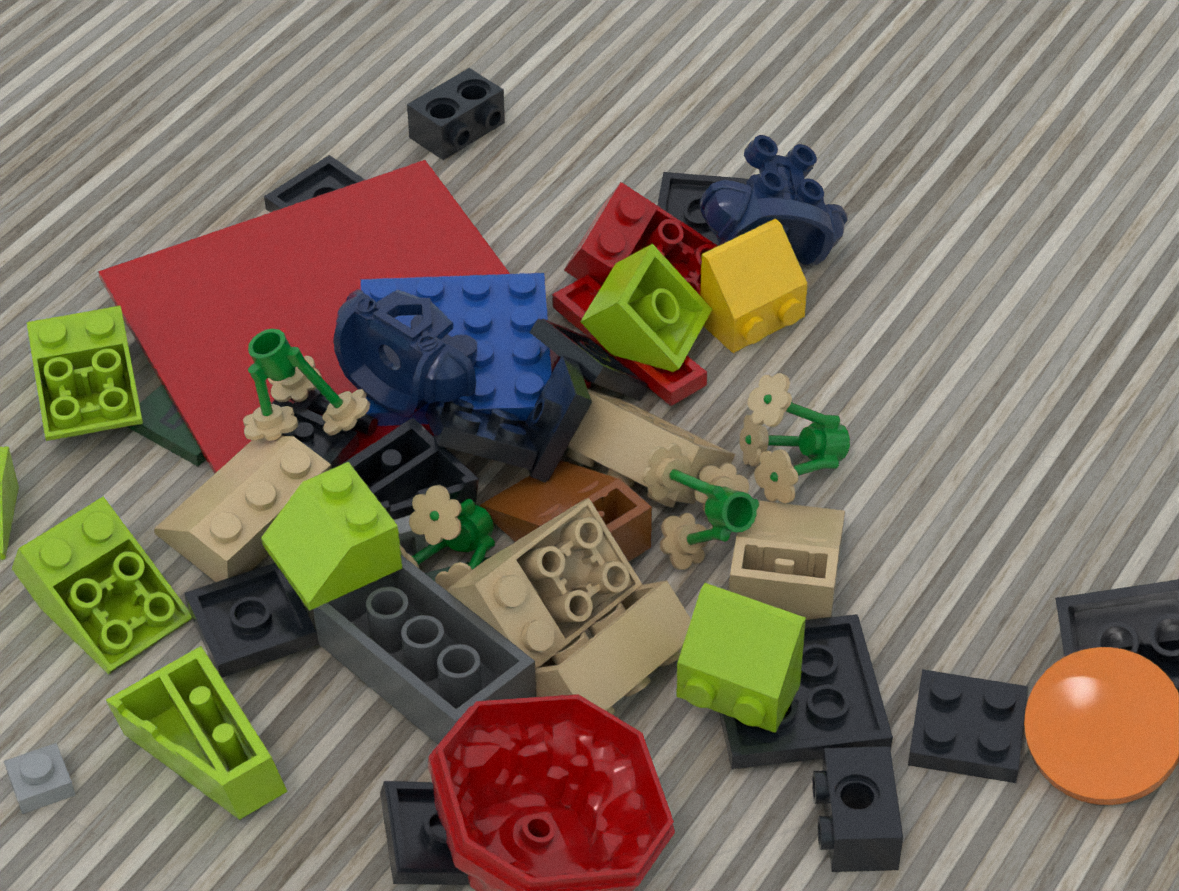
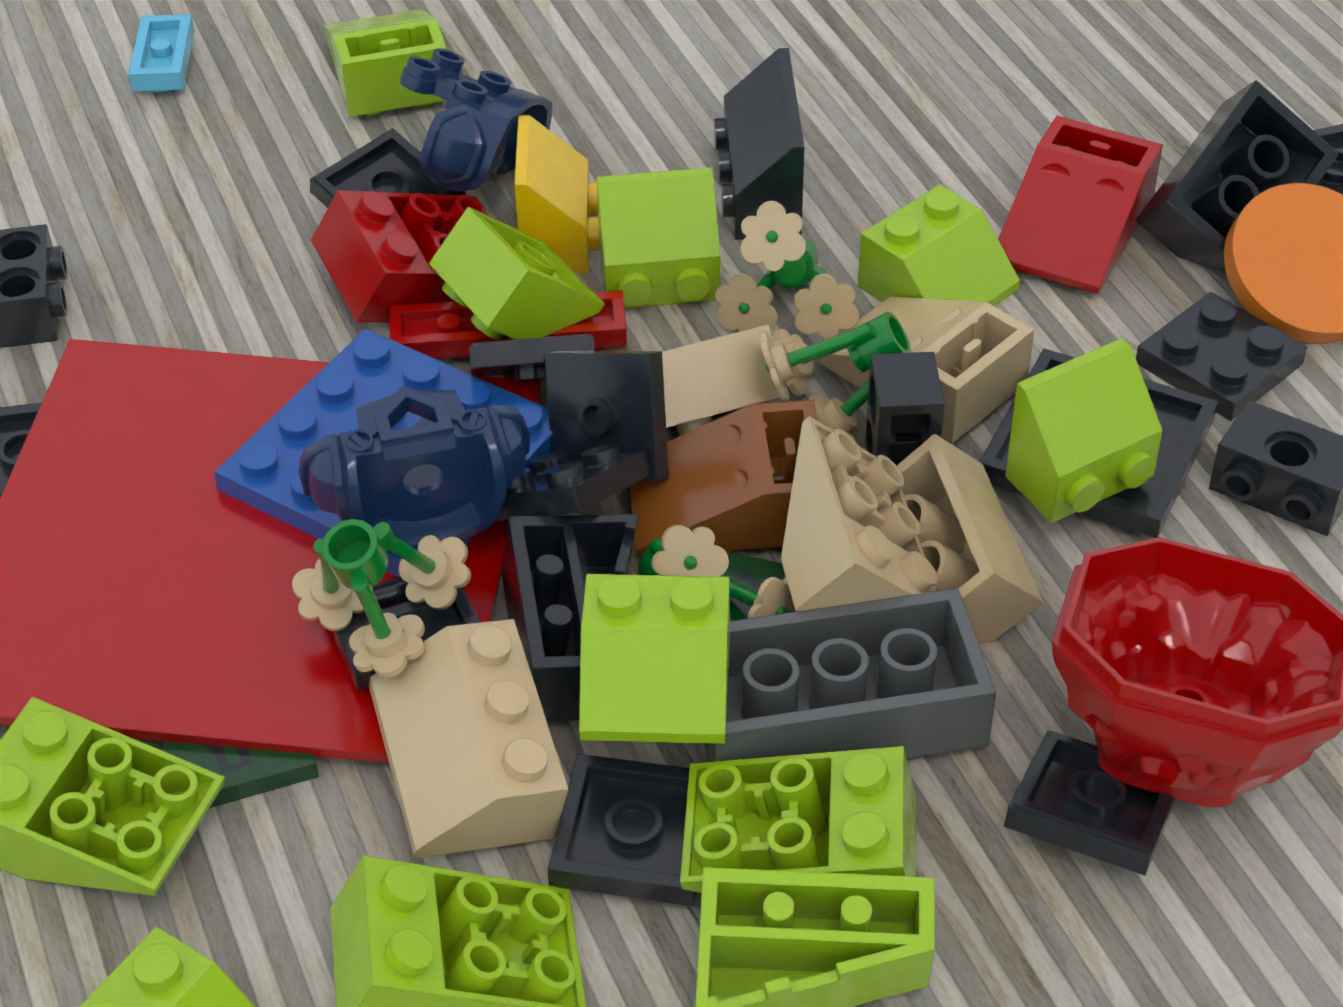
camera: 55 degrees left, 0 degrees up
(300, 699) = (802, 815): none -> lime slope
(688, 554) = (902, 404): none -> black brick
(733, 41) = (161, 53): none -> medium azure plate
(759, 342) = (659, 236): none -> lime slope
(839, 131) = (372, 56): none -> lime slope
(898, 516) = (935, 251): none -> lime slope
(918, 370) = (761, 142): none -> black slope
(1036, 556) = (1079, 203): none -> red slope

